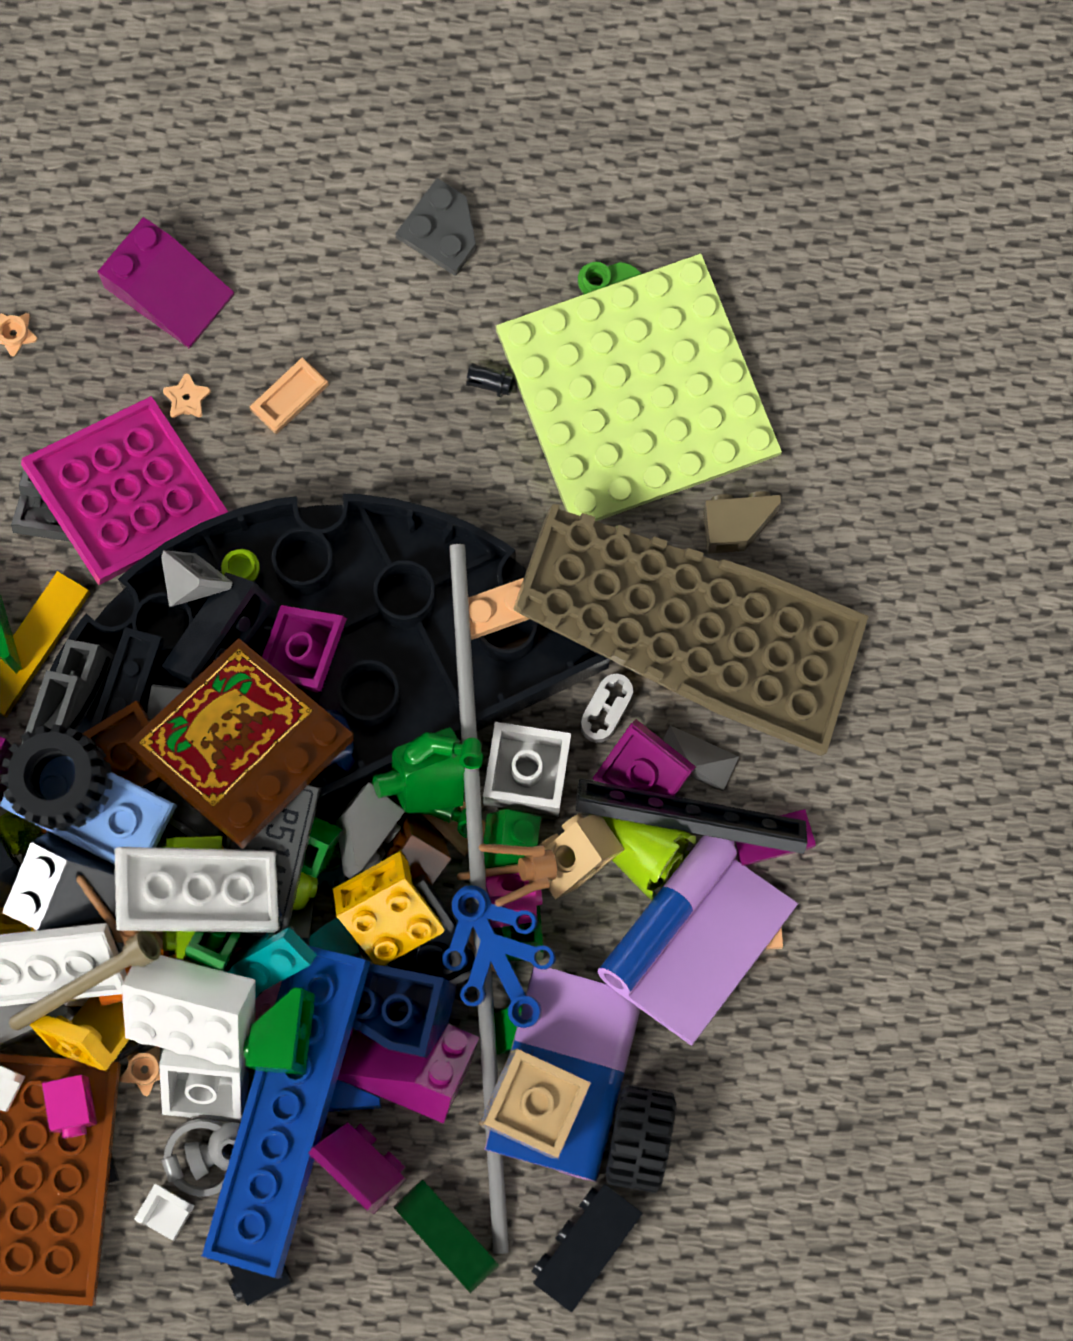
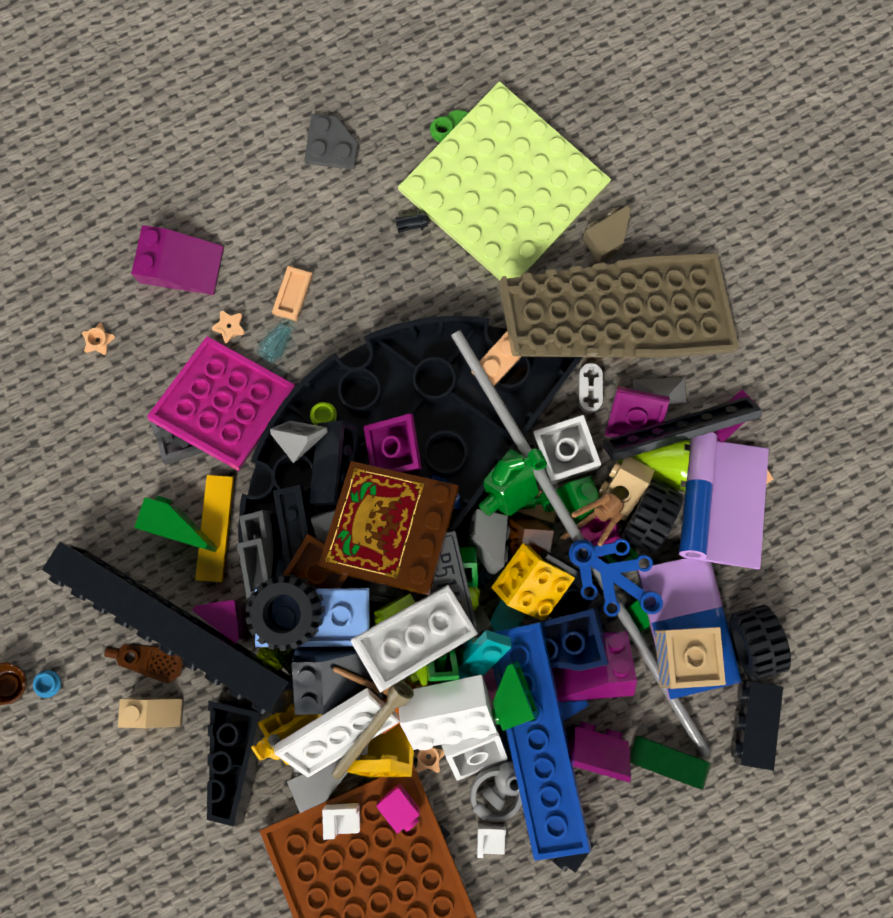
camera: 25 degrees left, 5 degrees up
(230, 448) = (274, 343): none -> clear light blue cone
(589, 907) = (652, 517): none -> black tyre

